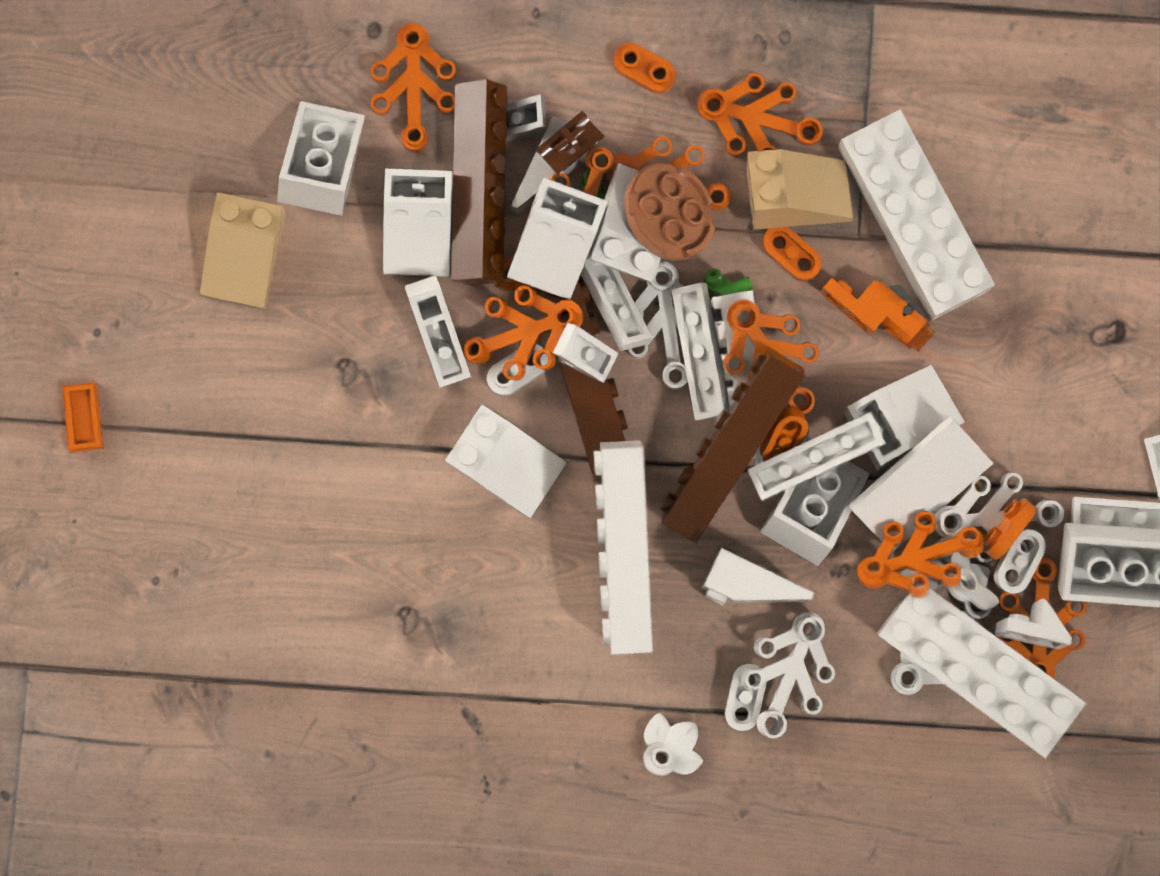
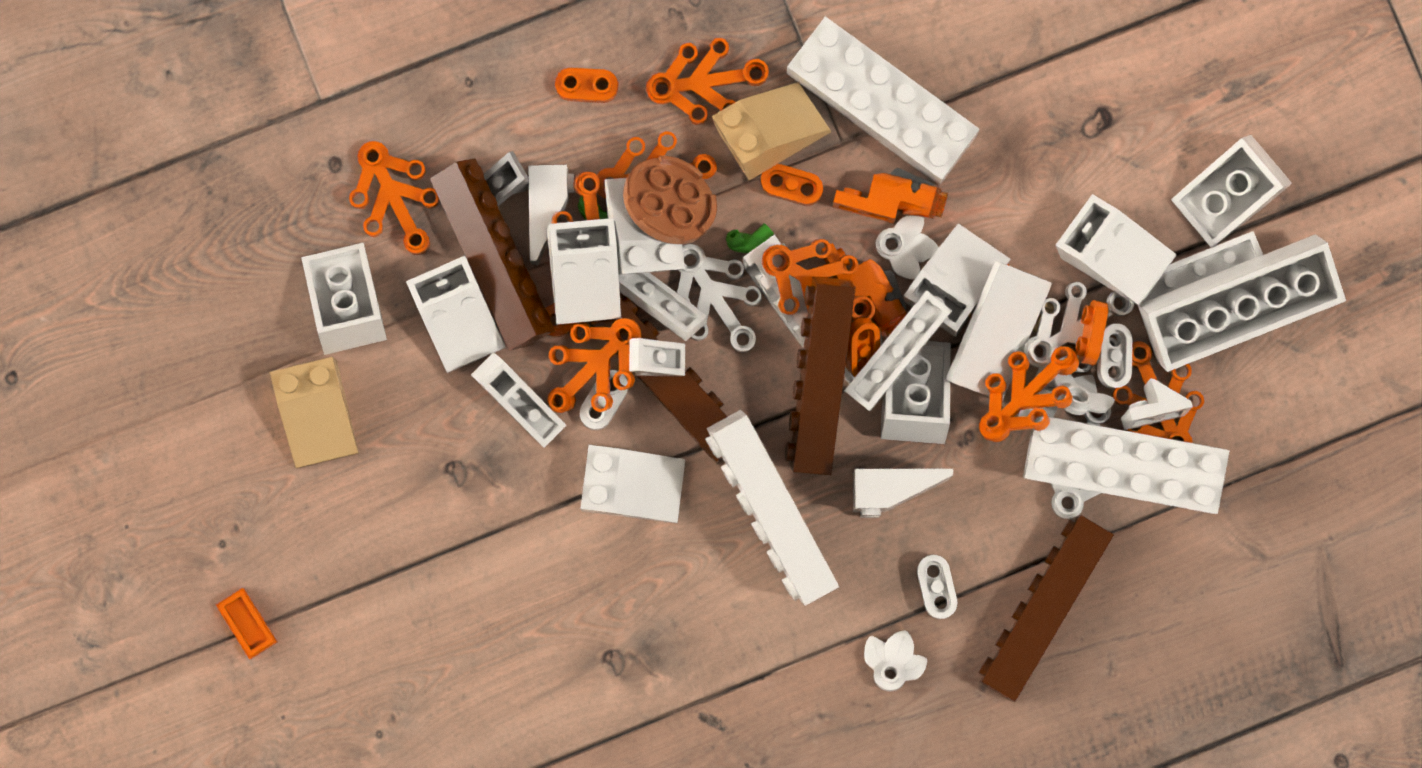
camera: 20 degrees left, 0 degrees up
(569, 143) = (555, 182): reddish brown hips -> none
(700, 351) = (754, 307): white plate -> none
(792, 669) = (965, 543): white plant -> none
(826, 385) = (878, 286): none -> orange plate
(839, 767) = (1046, 607): none -> reddish brown brick
(876, 367) = (911, 246): none -> white plate
(1067, 461) = (1114, 250): none -> white slope

